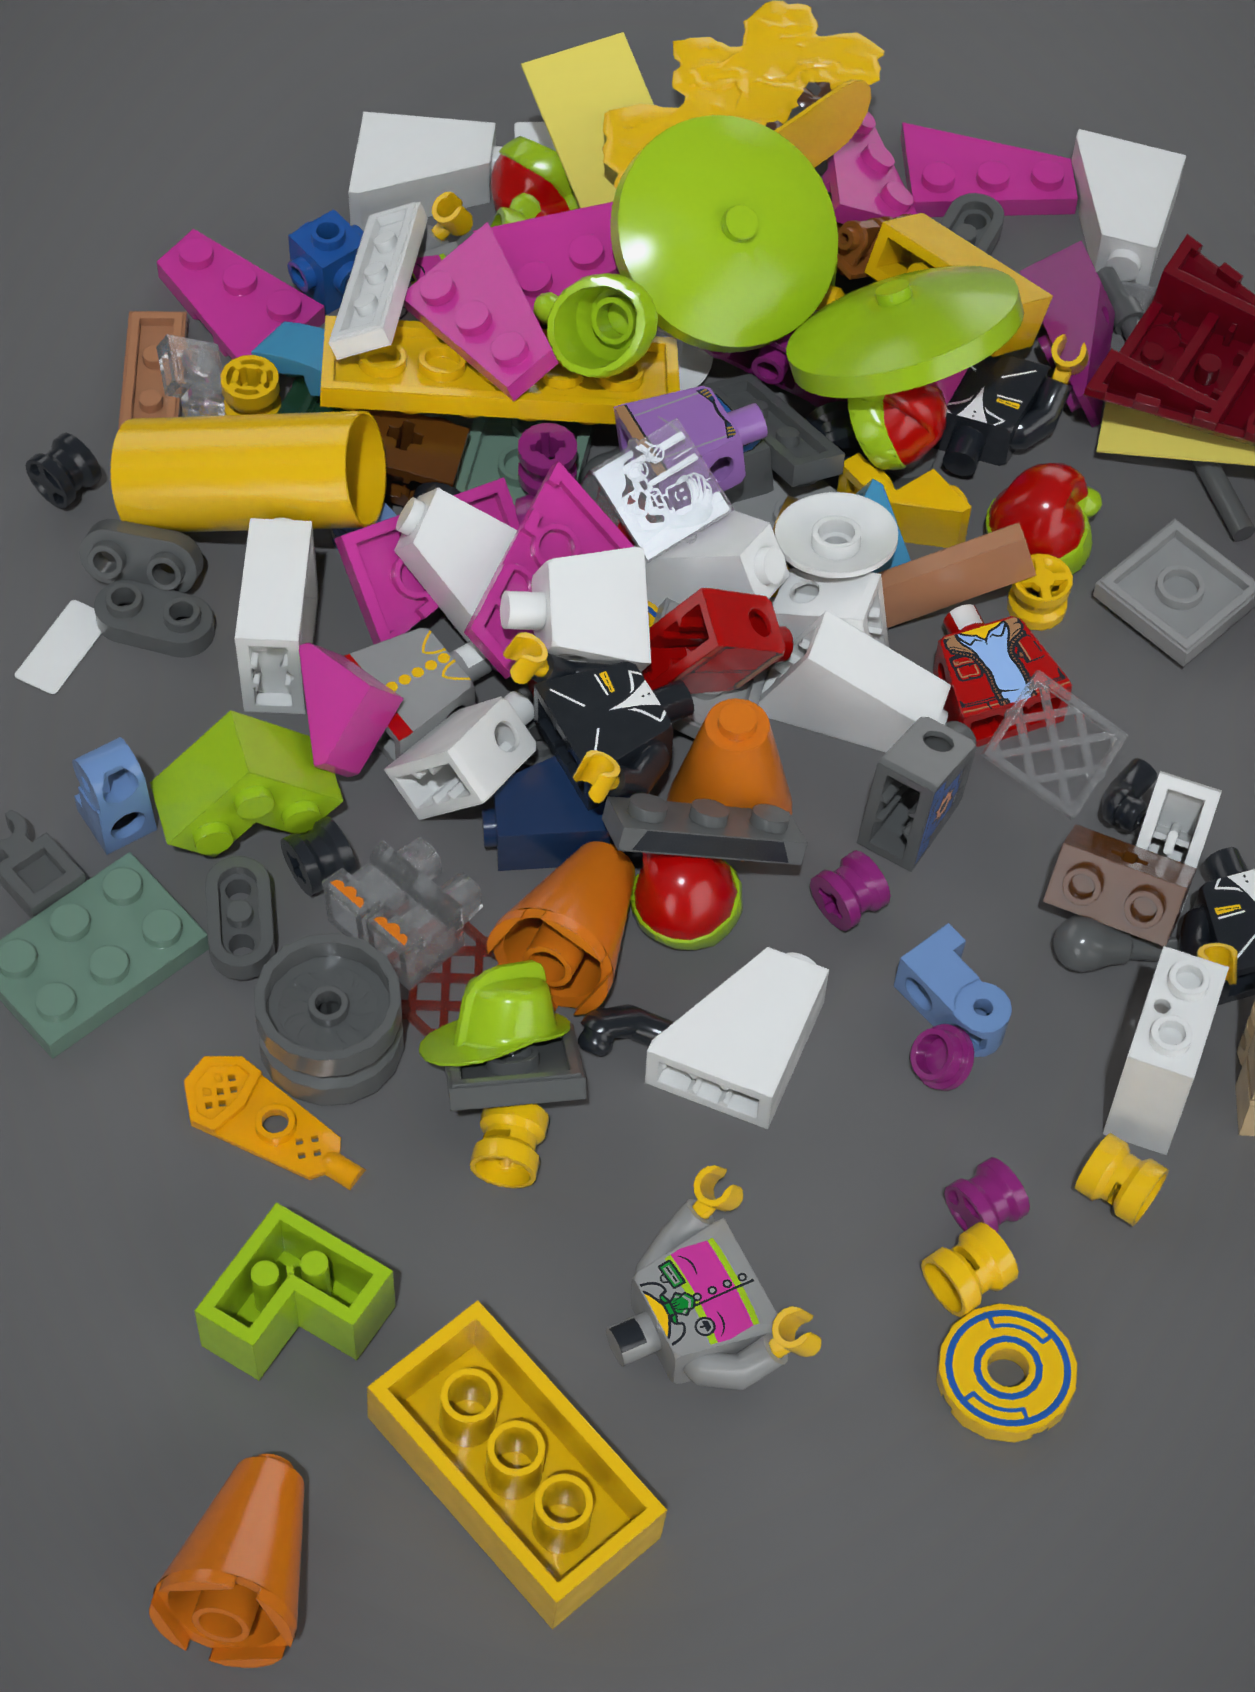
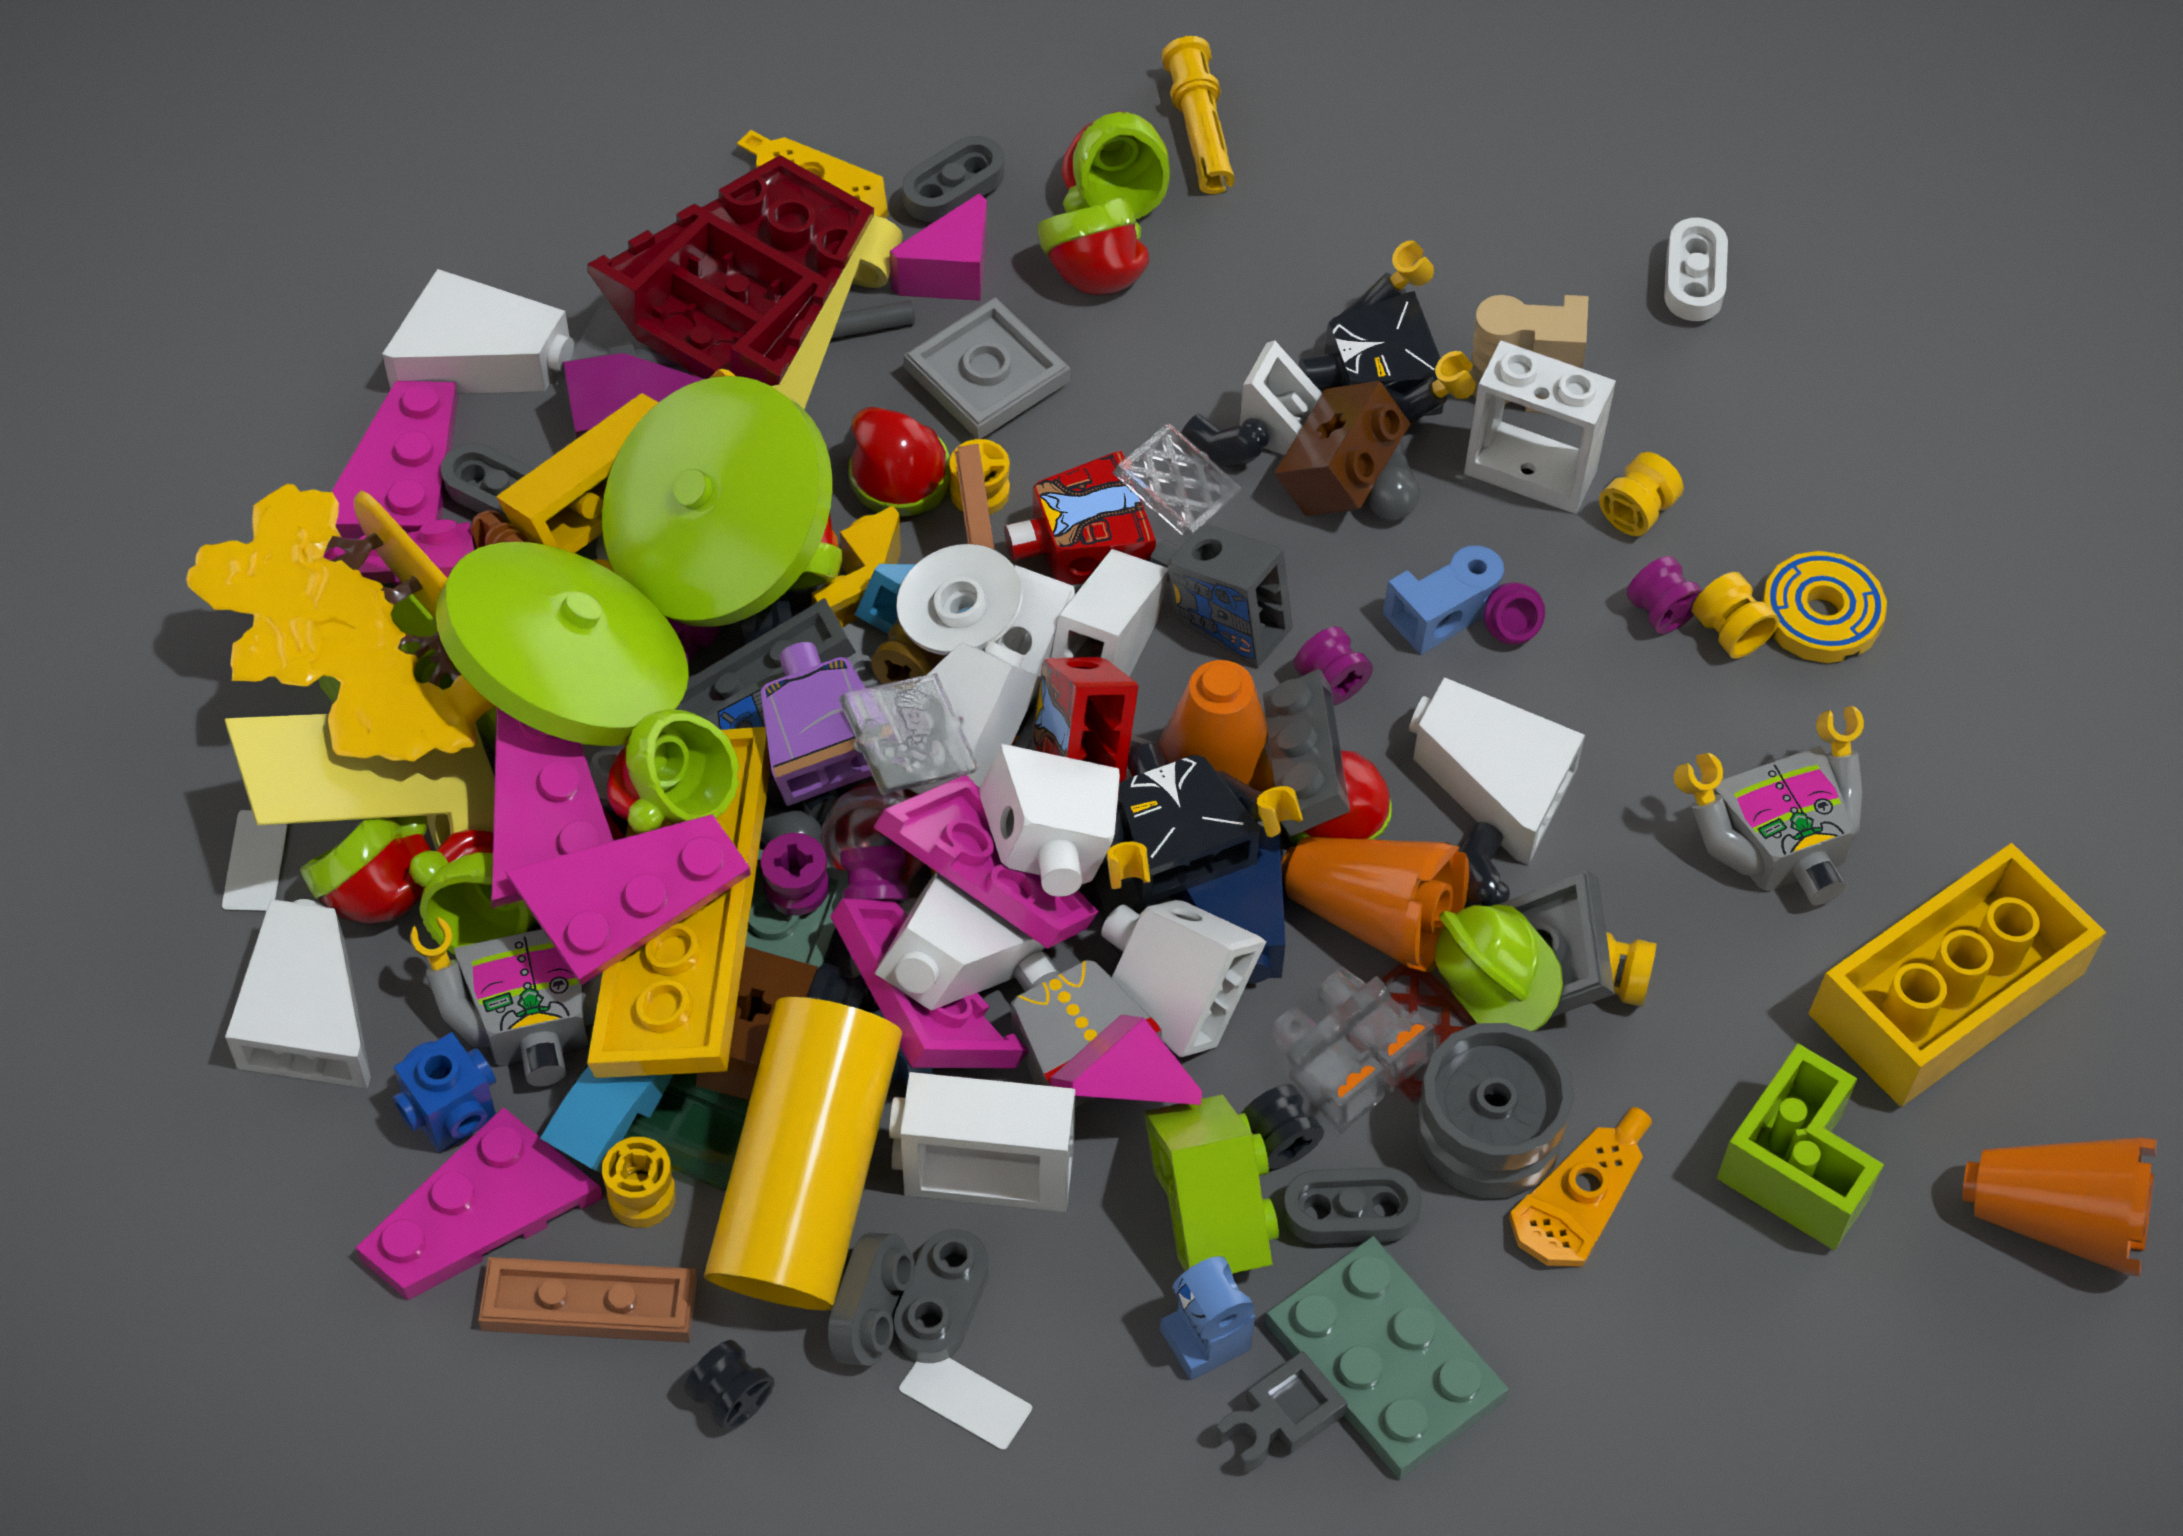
camera: 85 degrees left, 0 degrees up
(192, 373) = (602, 1246): clear plate -> none
(378, 281) = (548, 1001): white tile -> none

